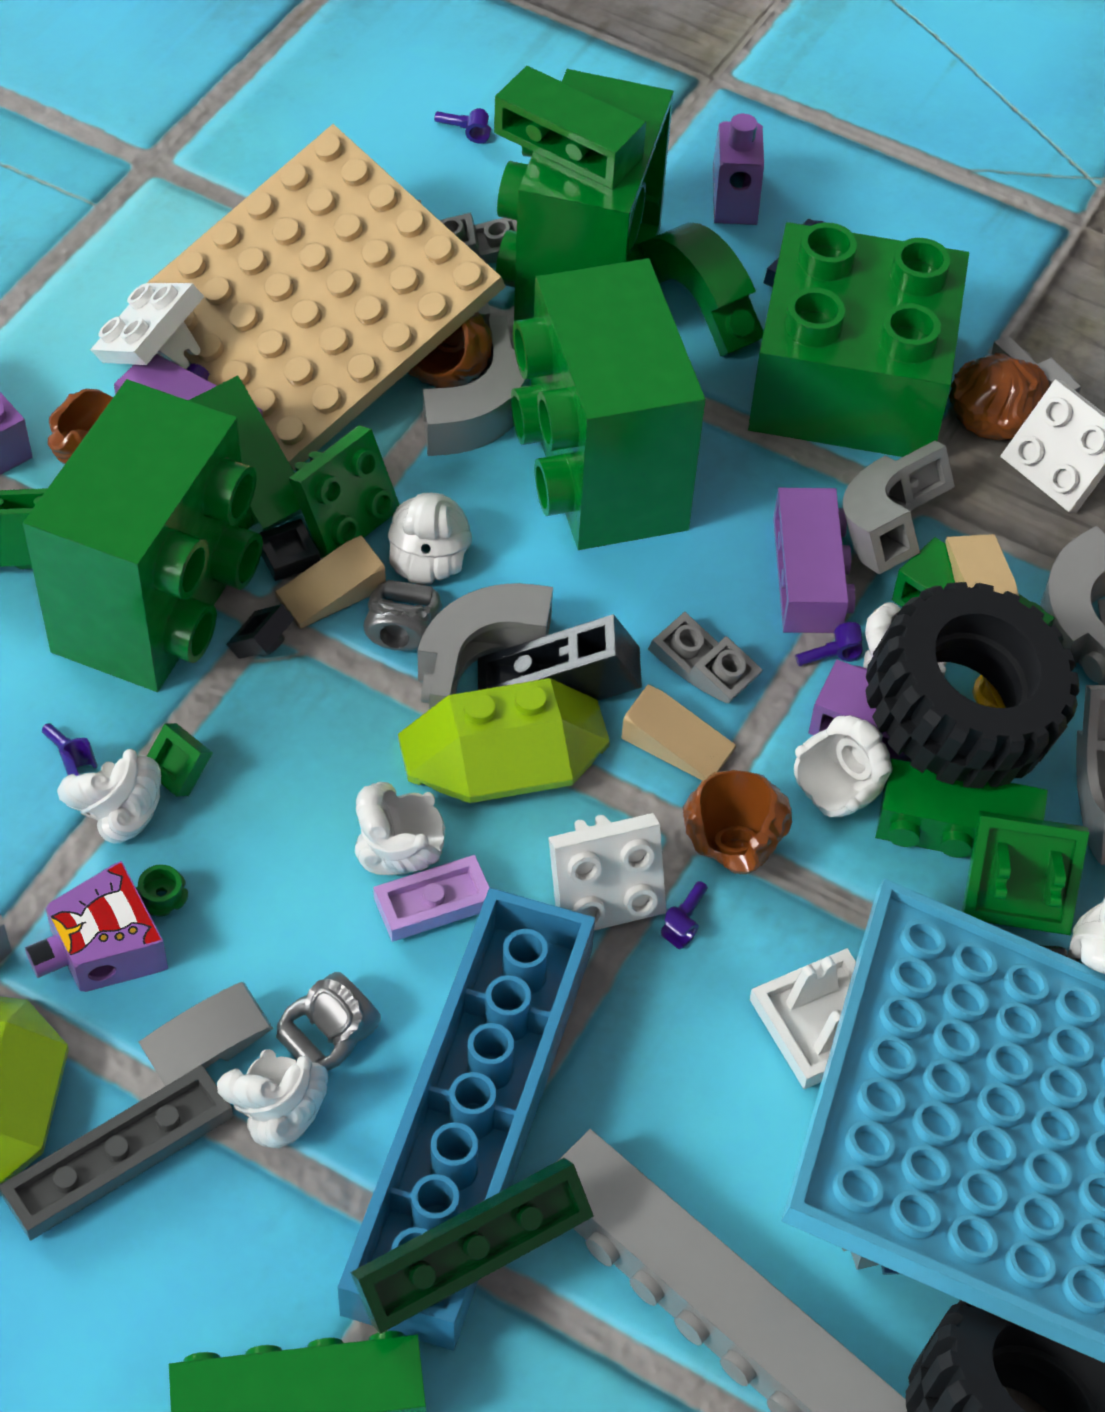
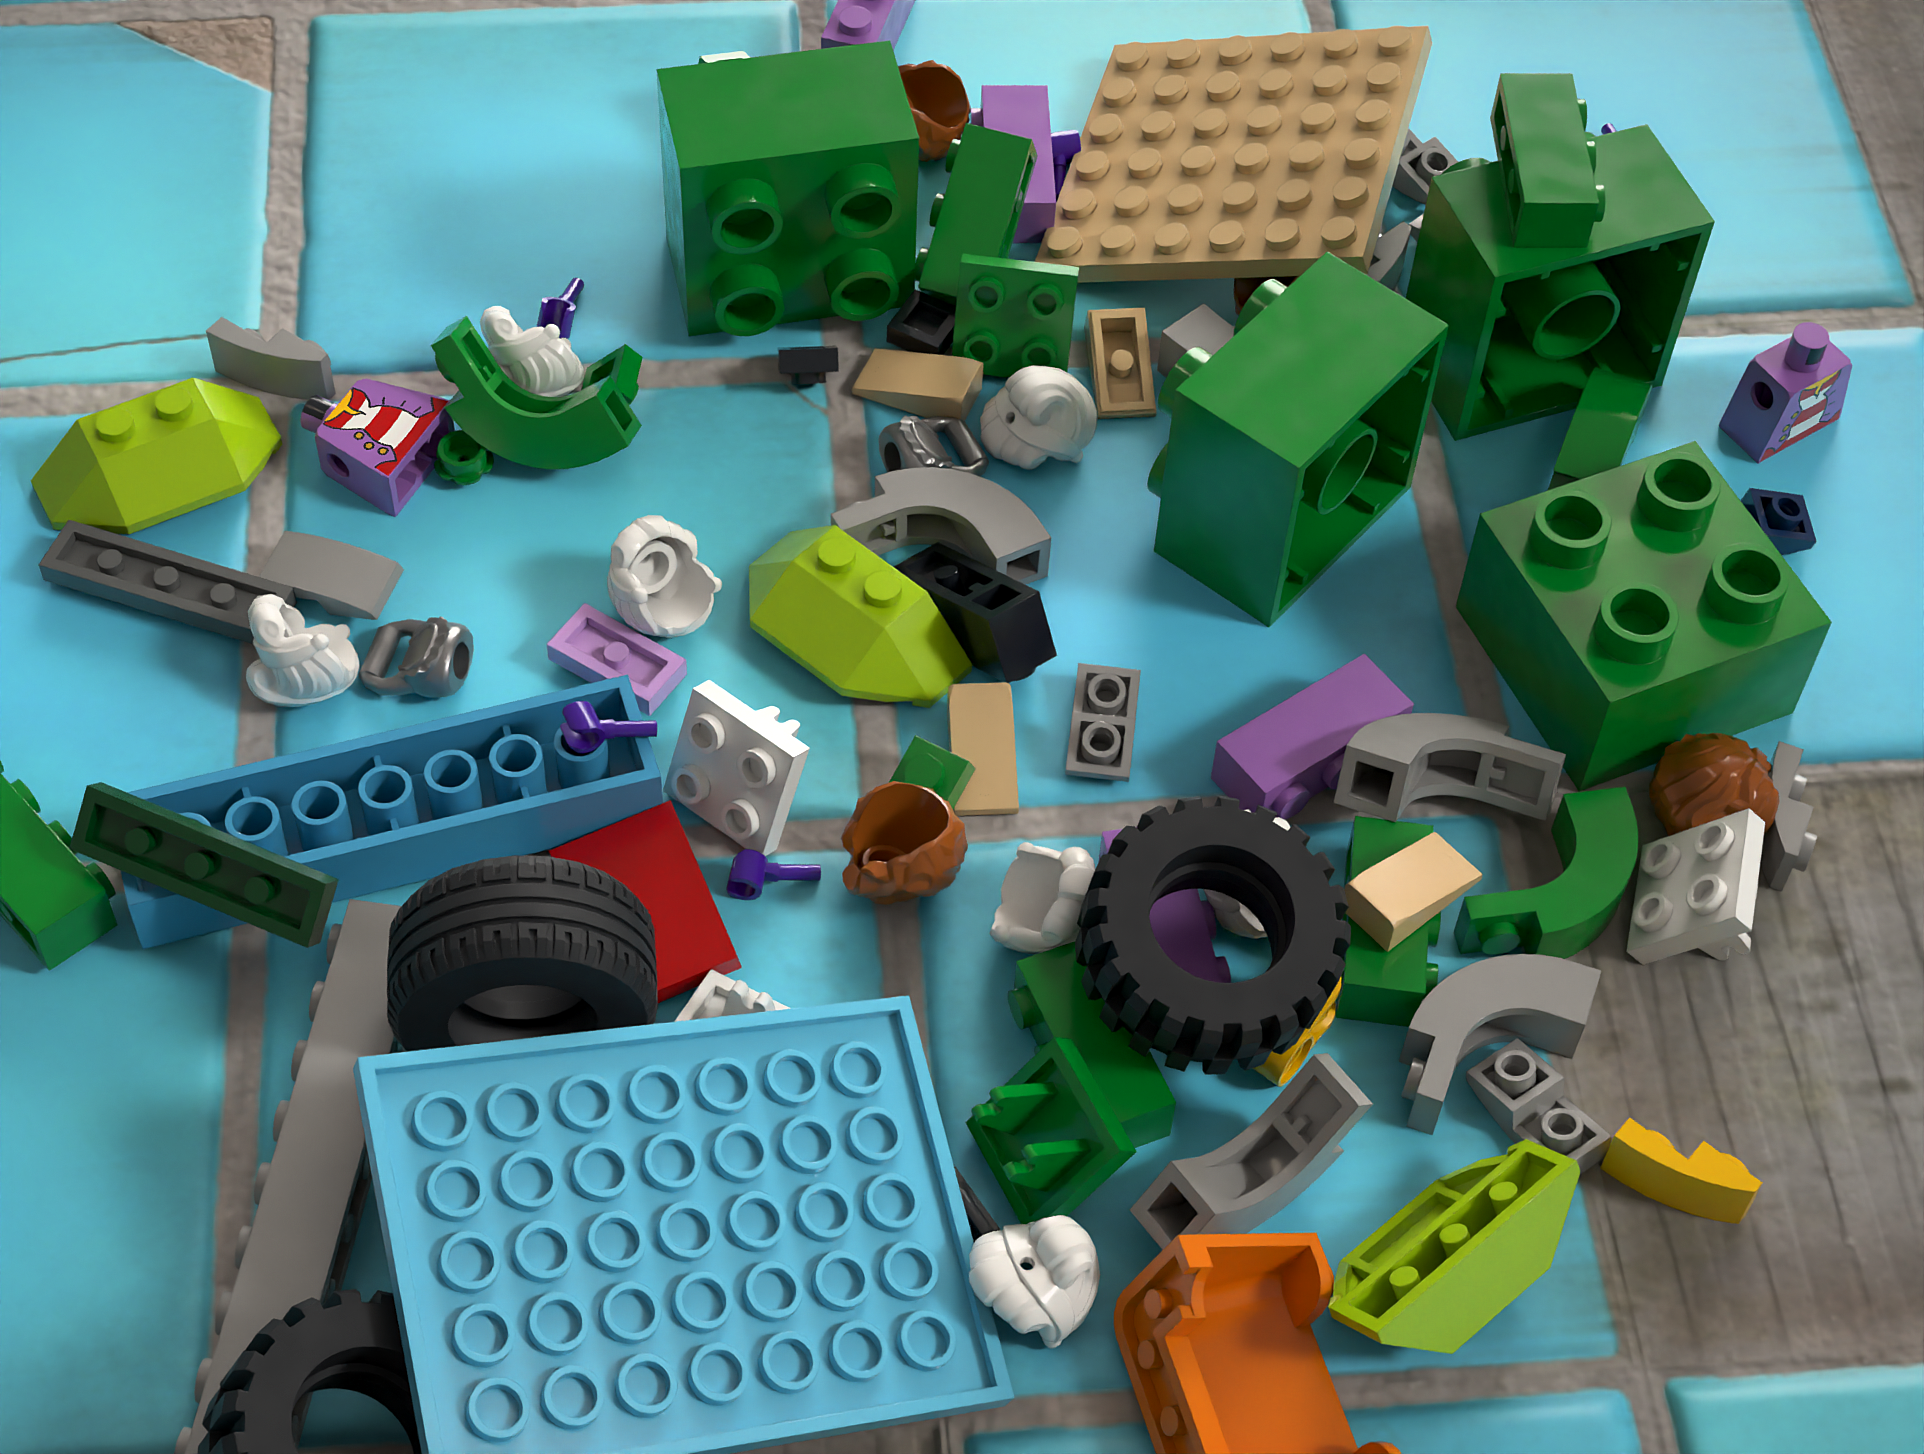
camera: 55 degrees right, 0 degrees up
(151, 326) = (1069, 70): white plate -> none
(186, 825) = (525, 425): none -> green arch
(416, 468) = (1120, 363): none -> tan slope
(528, 936) = (586, 732): none -> dark purple hand
(664, 1003) = (660, 869): none -> red tile
(679, 774) = (934, 768): none -> green plate
(720, 1088) = (519, 955): none -> black tyre
(1014, 491) = (1598, 853): none -> green arch

